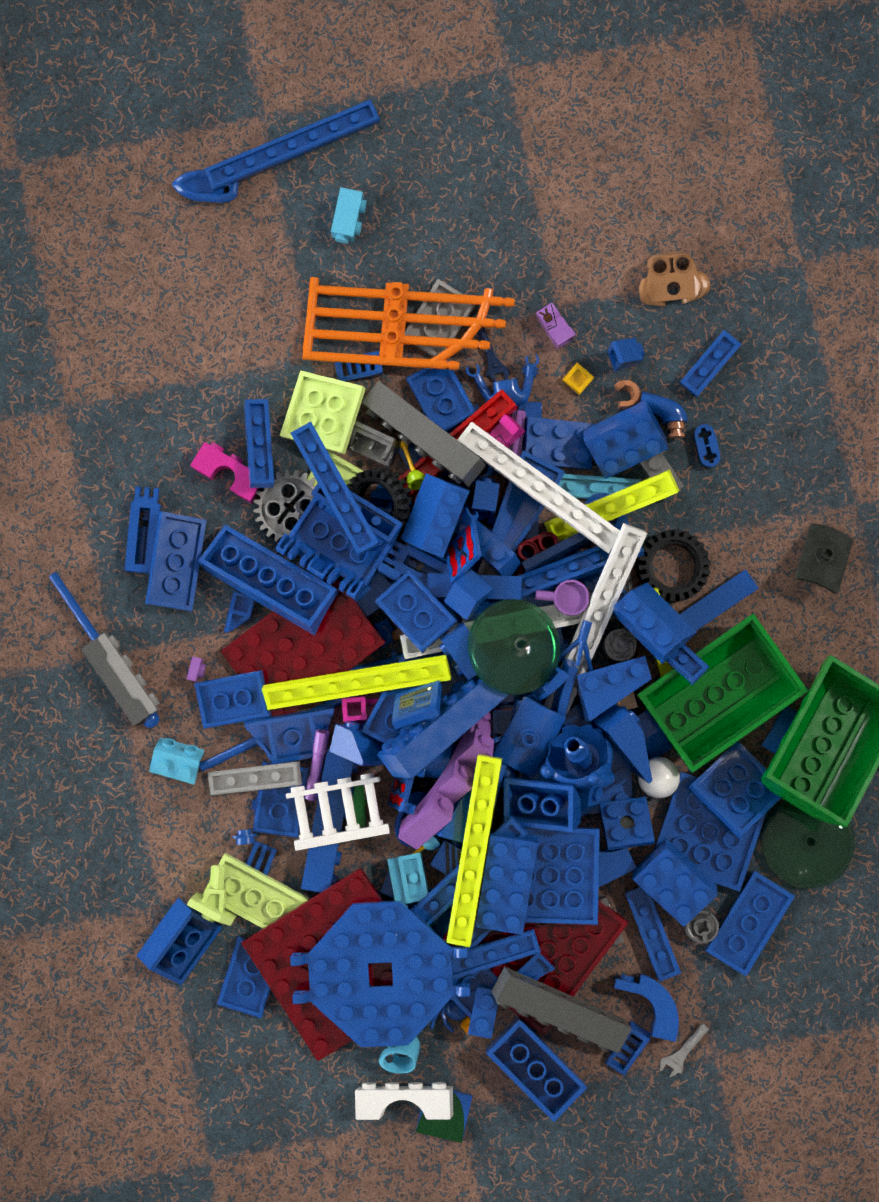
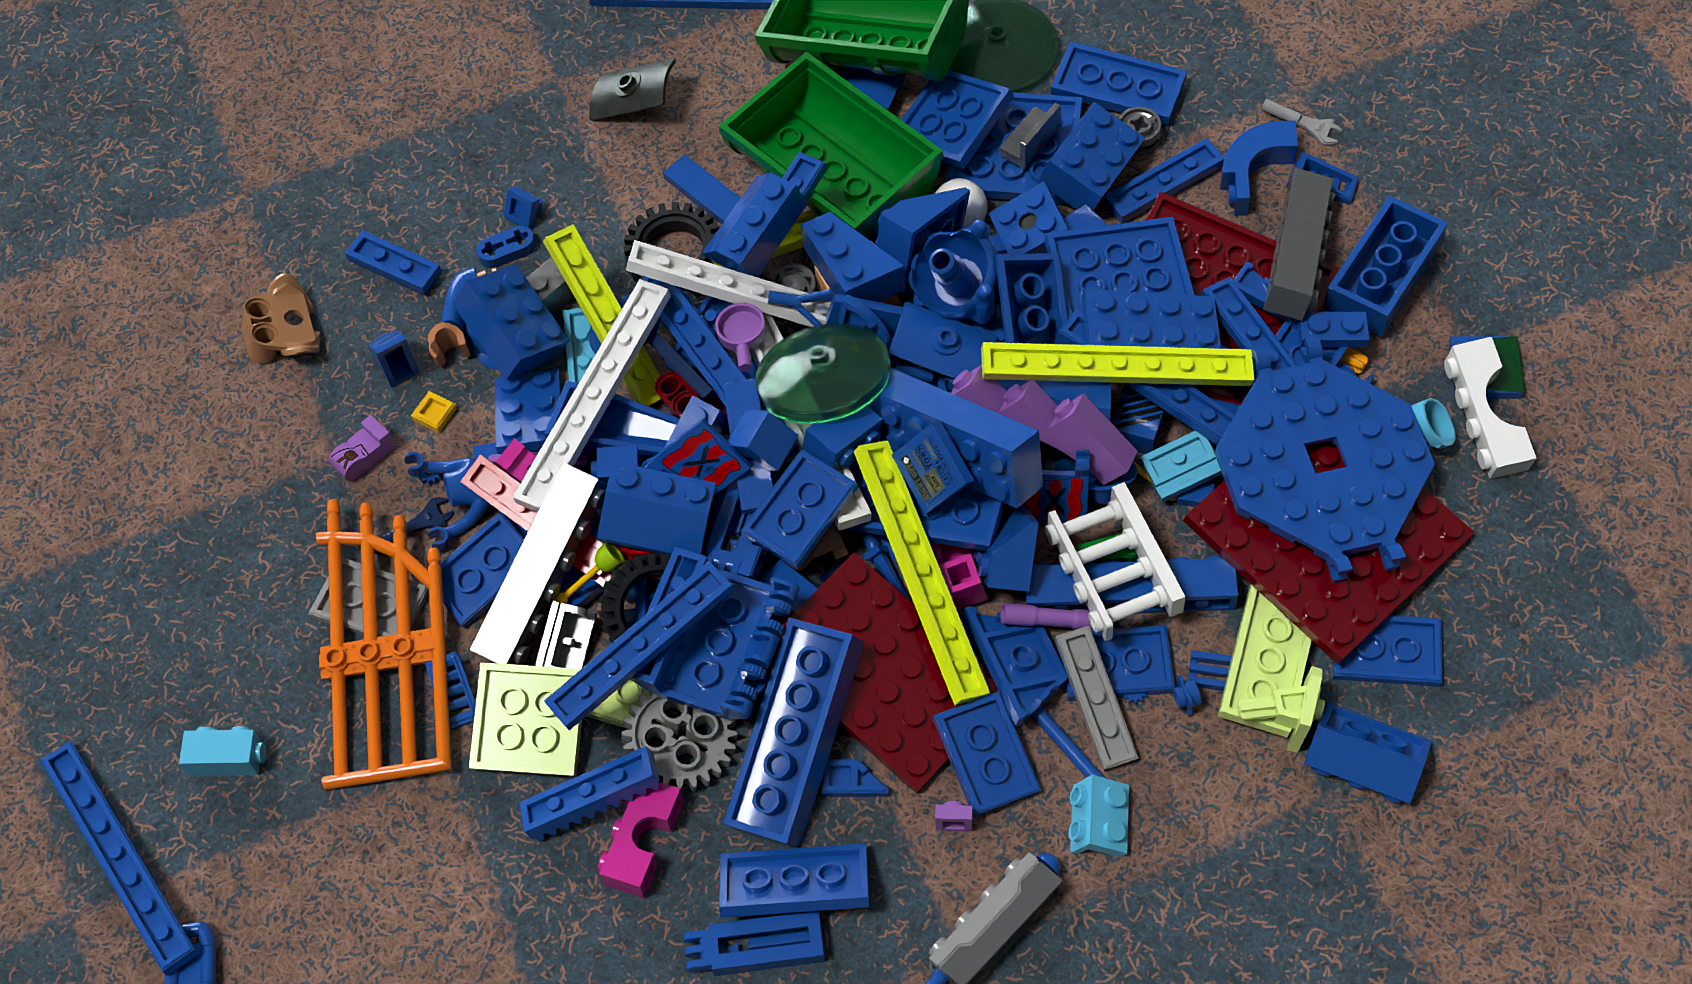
camera: 90 degrees left, 25 degrees down
(709, 843) = (1031, 135): none -> flat silver panel
(736, 462) = (522, 207): none -> blue tile

